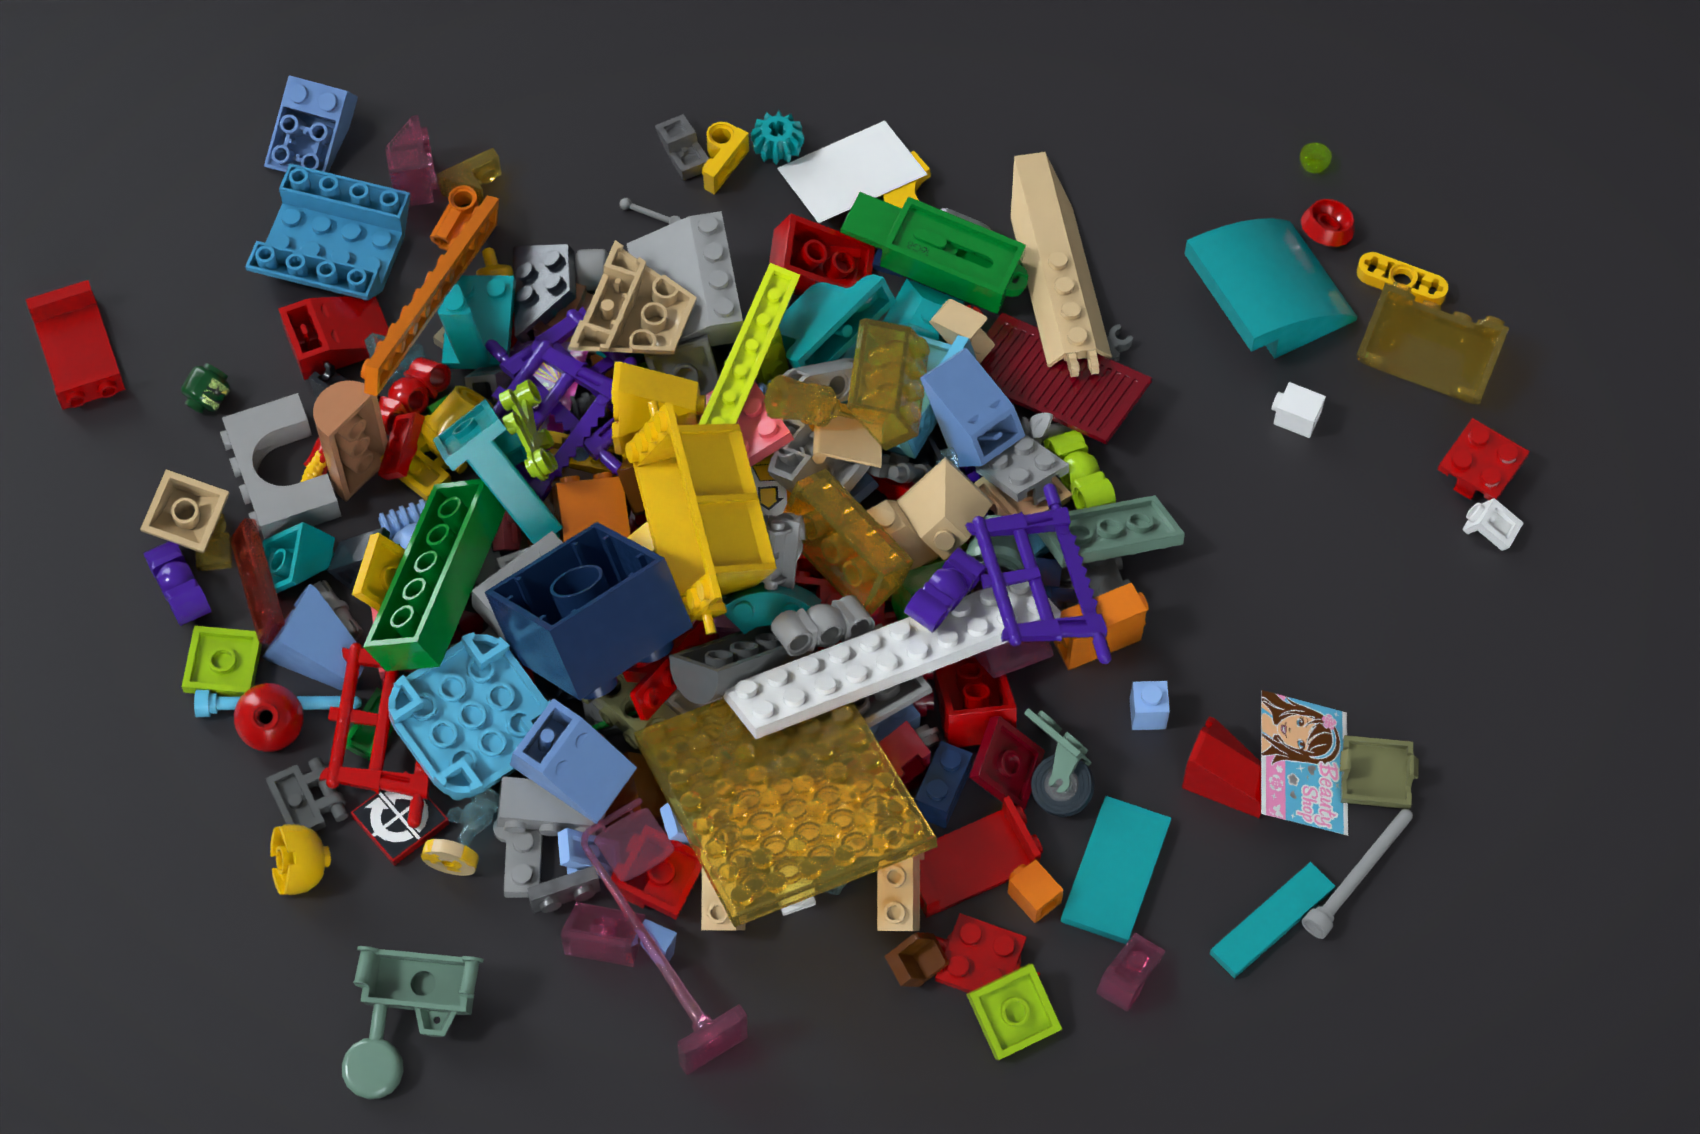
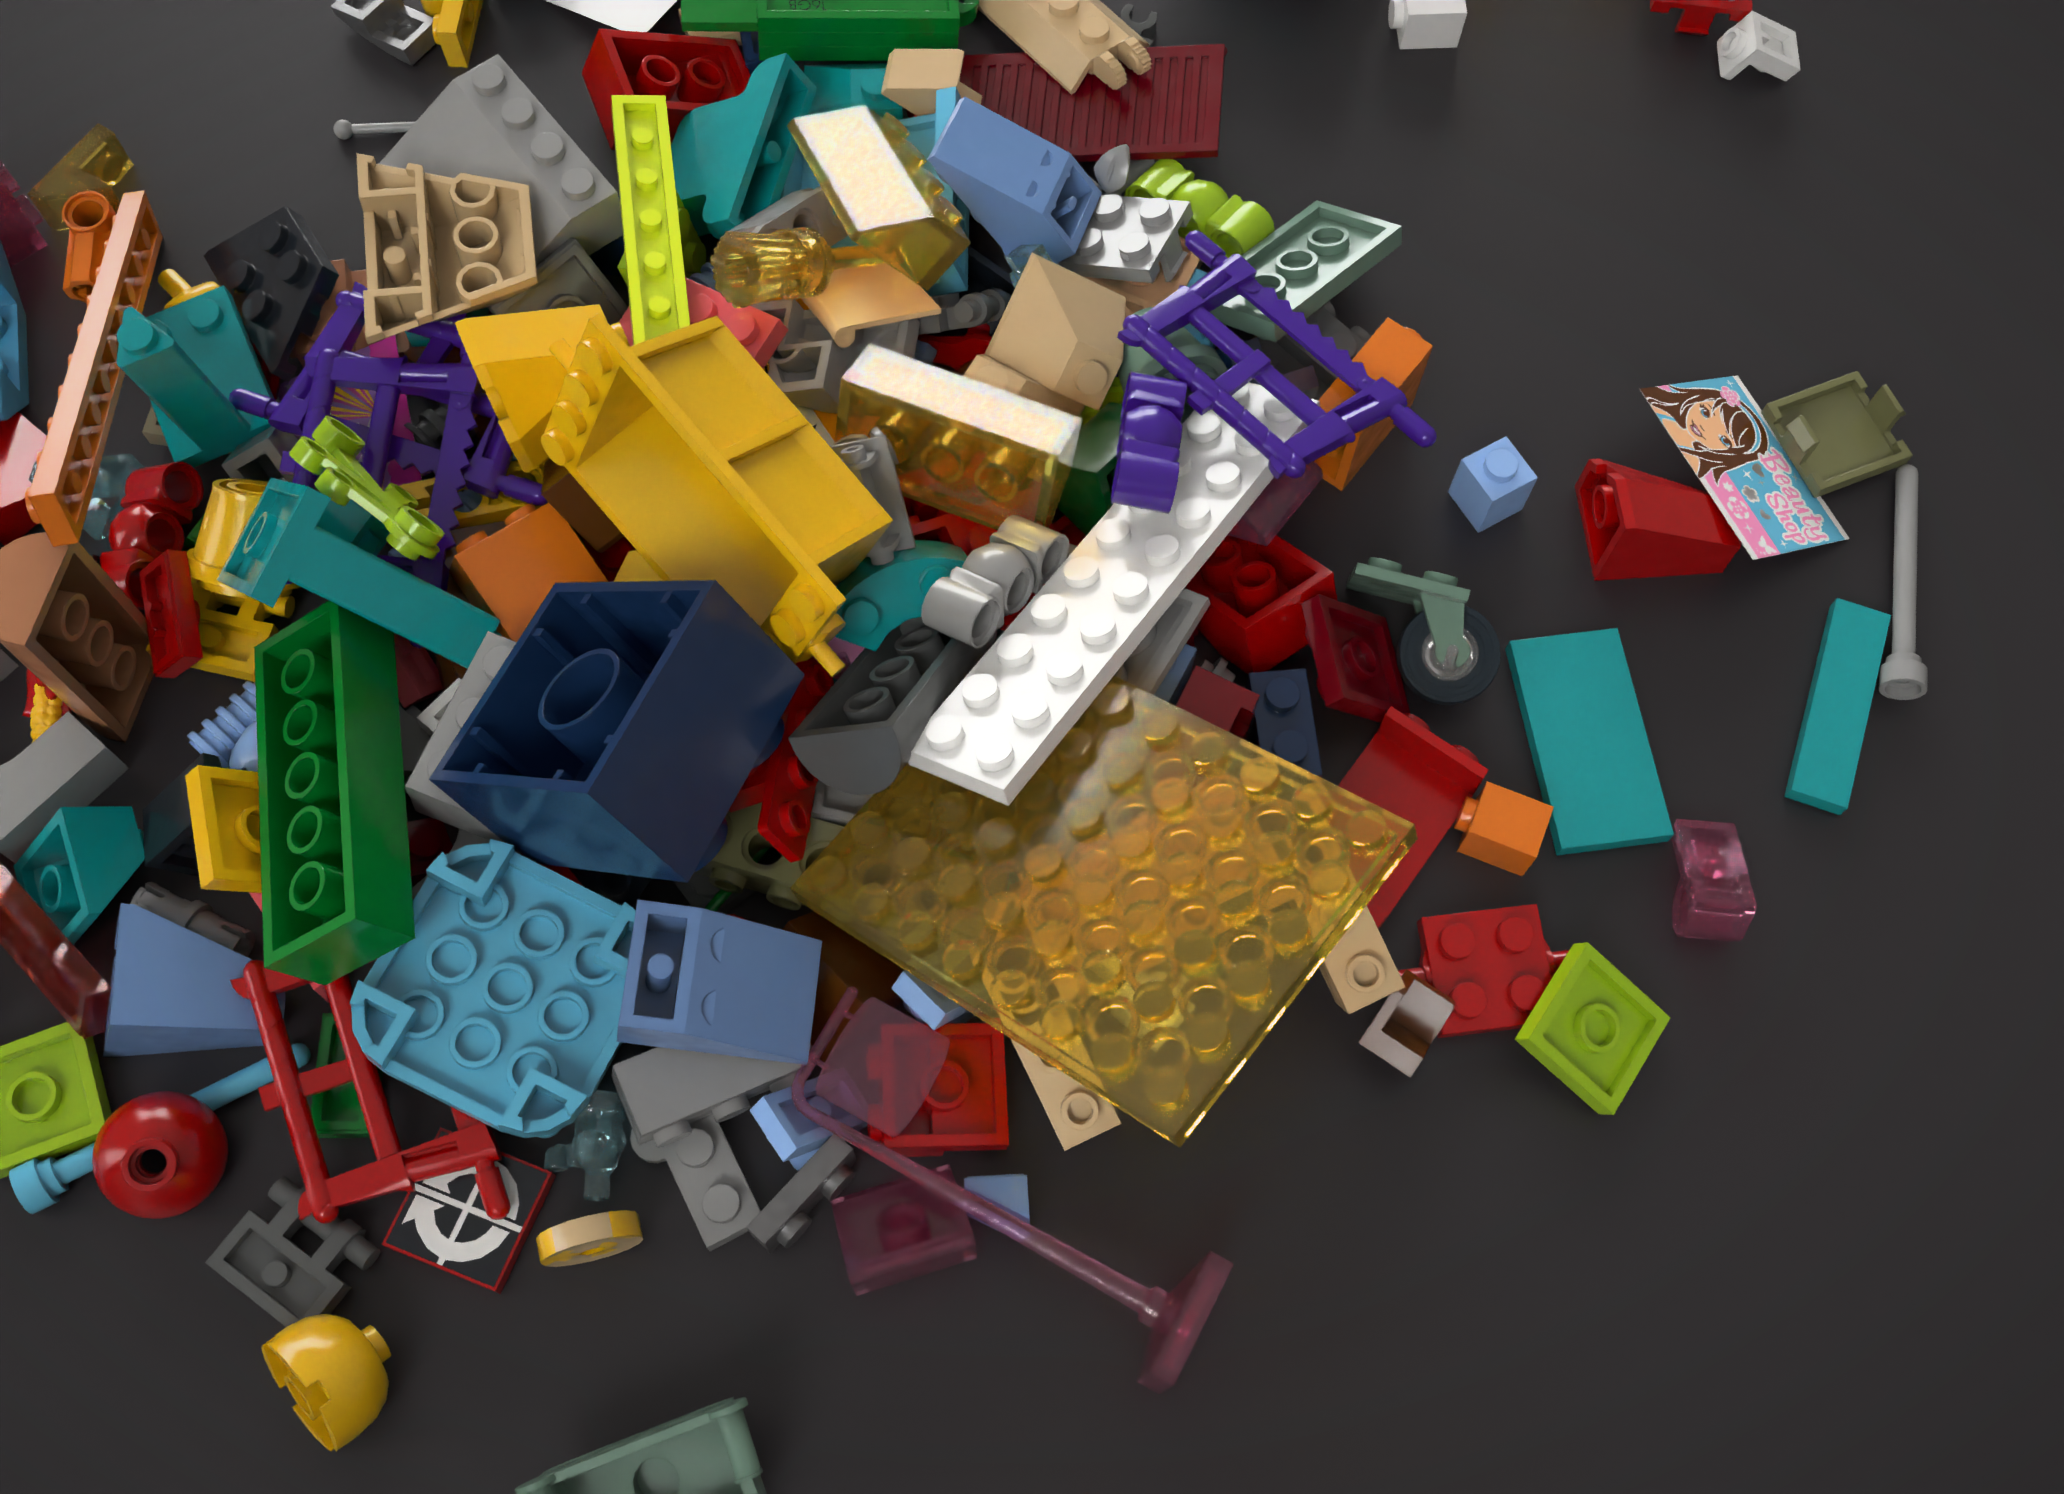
camera: 30 degrees left, 5 degrees up
(590, 267) = (339, 229): light grey head -> none

